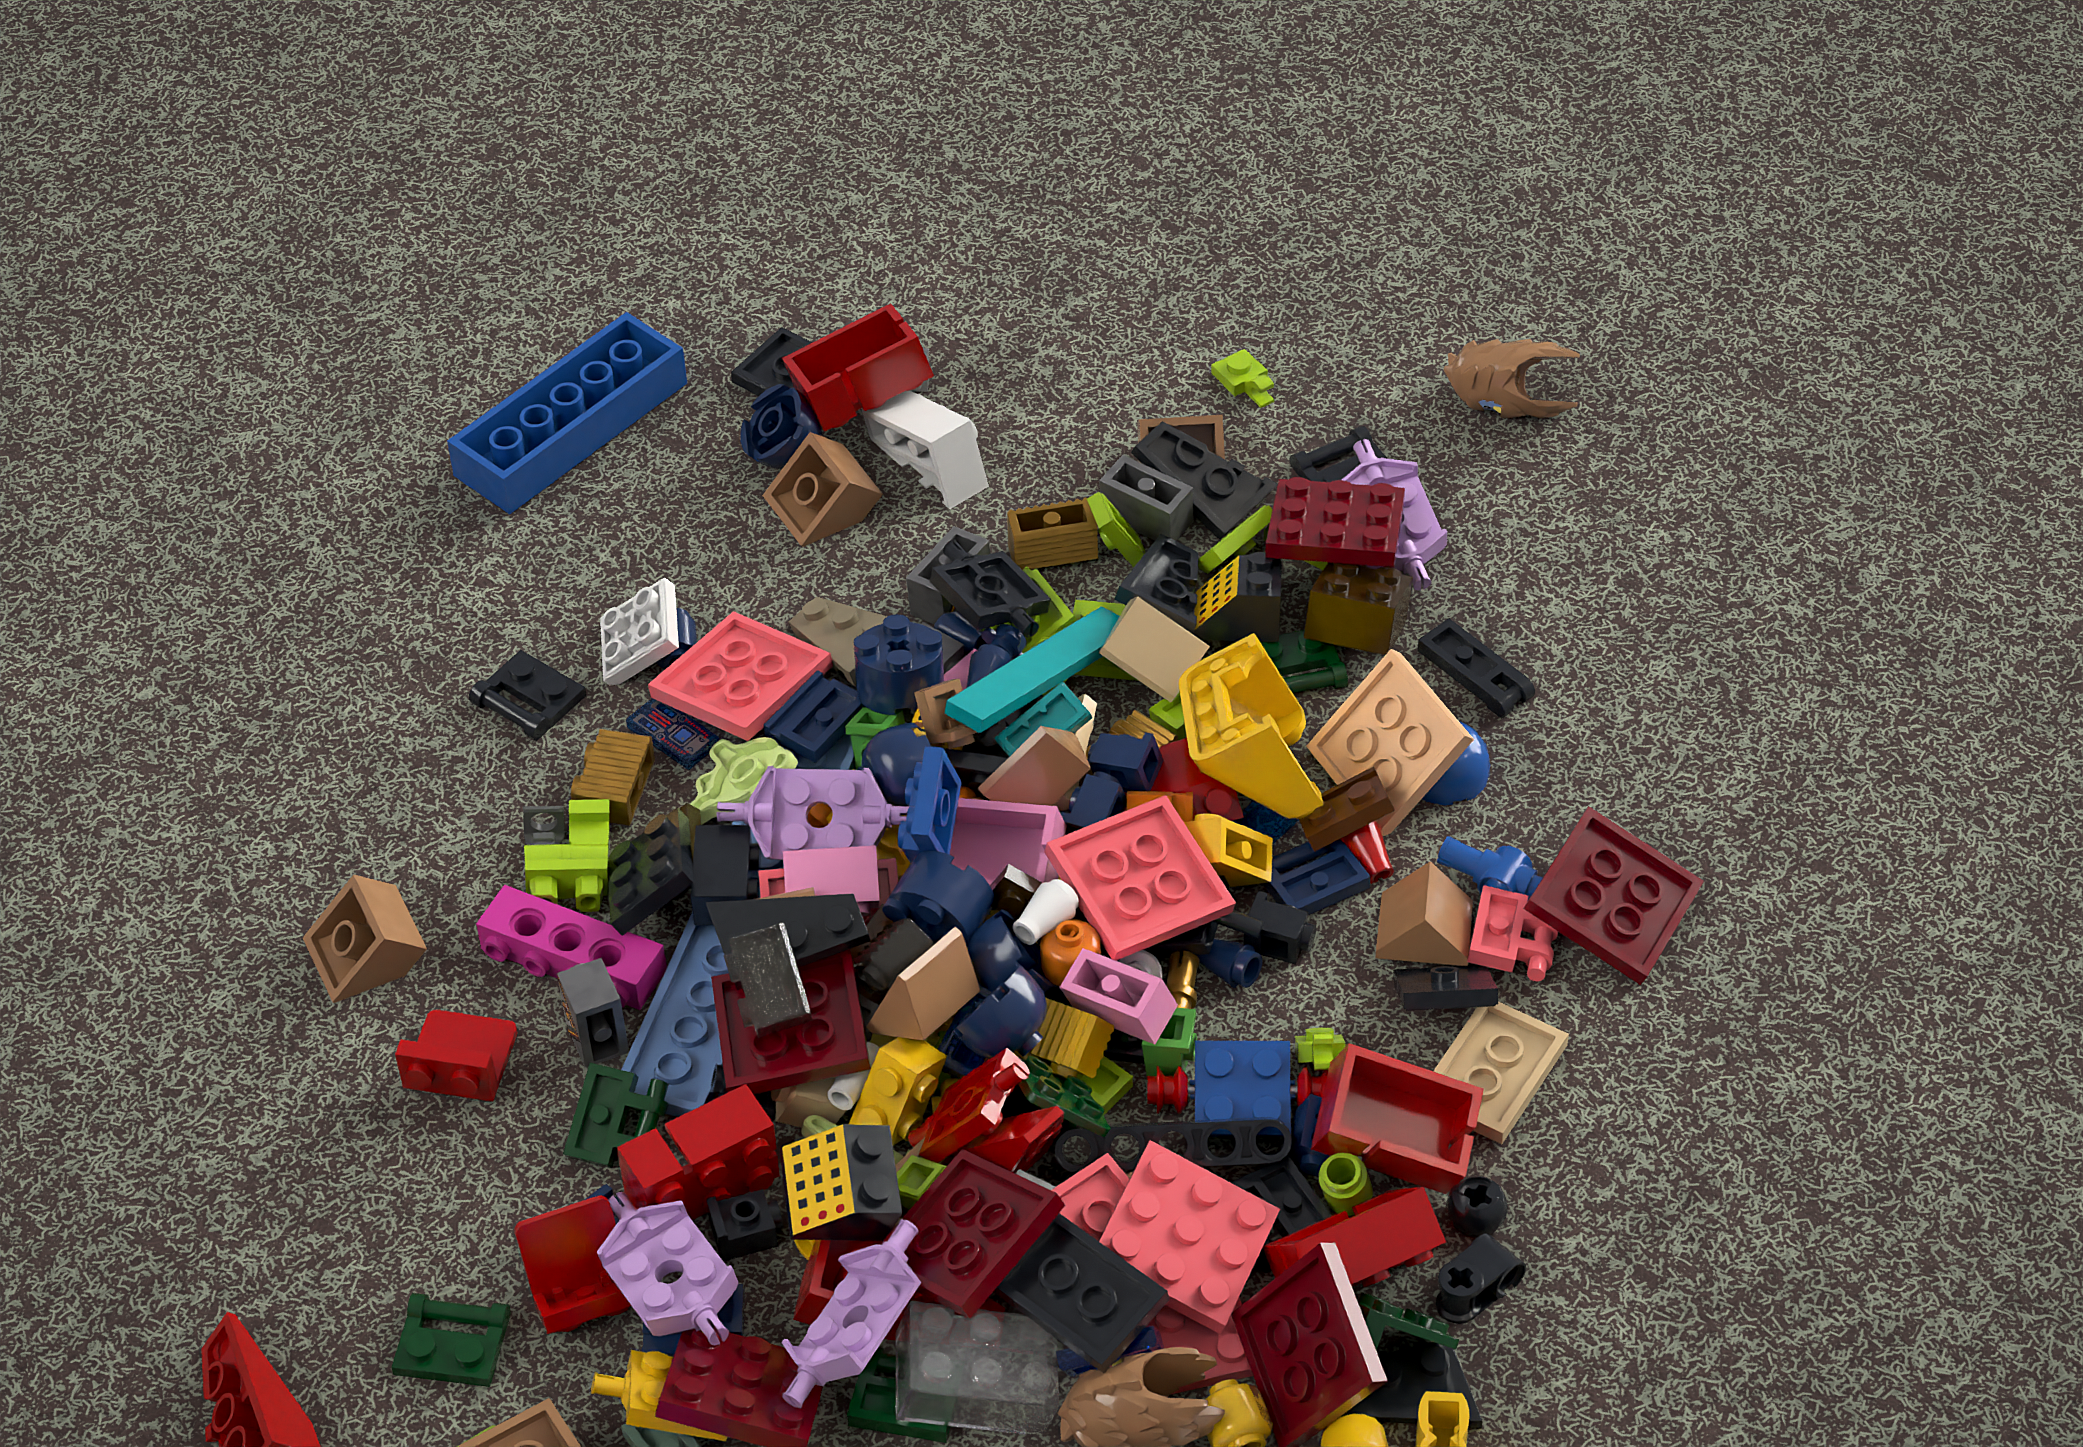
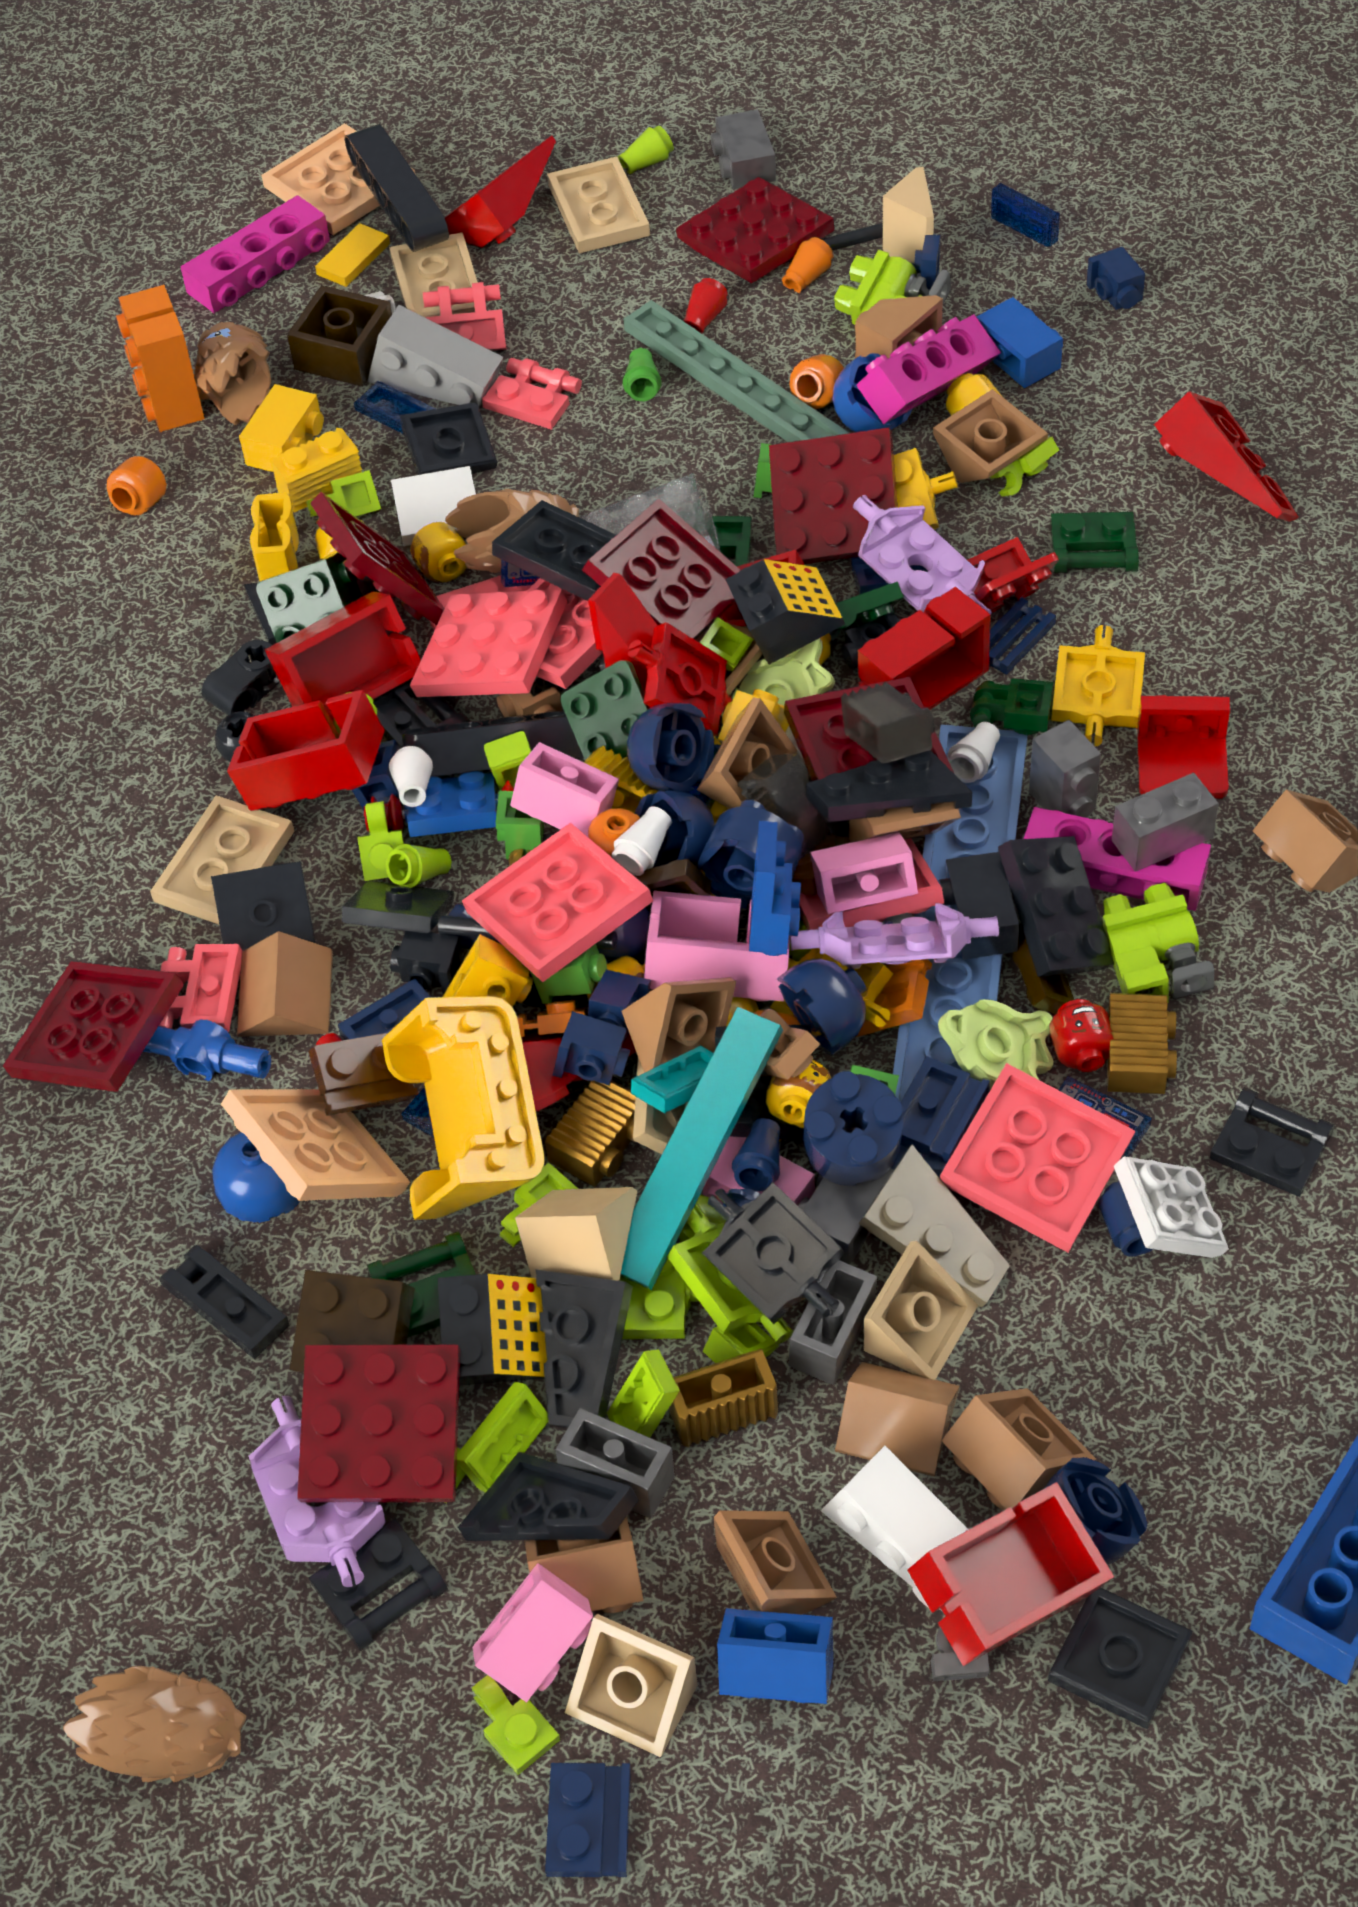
camera: 175 degrees right, 5 degrees up
(515, 1146) = (1098, 685): none -> yellow plate
(517, 917) = (1164, 822): none -> flat silver brick
(663, 781) = (1081, 1034): none -> red head
(678, 1049) = (973, 753): none -> white cone
(739, 1234) = (868, 606): none -> dark green plate
(872, 1292) = (762, 497): lavender plate -> none
(883, 583) = (917, 1315): none -> tan slope
(902, 531) = (896, 1412): none -> medium nougat slope
(1035, 438) = (771, 1561): none -> medium nougat slope
(1042, 376) = (769, 1658): none -> blue brick
(1148, 385) = (631, 1685): none -> tan slope
(1172, 1105) = (506, 756): none -> lime slope
(1195, 325) = (588, 1820): none -> dark blue plate
(1223, 392) = (533, 1633): none -> bright pink brick
(1282, 1084) = (411, 774): none -> white cone
(1285, 1018) = (415, 864): none -> lime cone
(1304, 977) = (397, 907): none -> plate

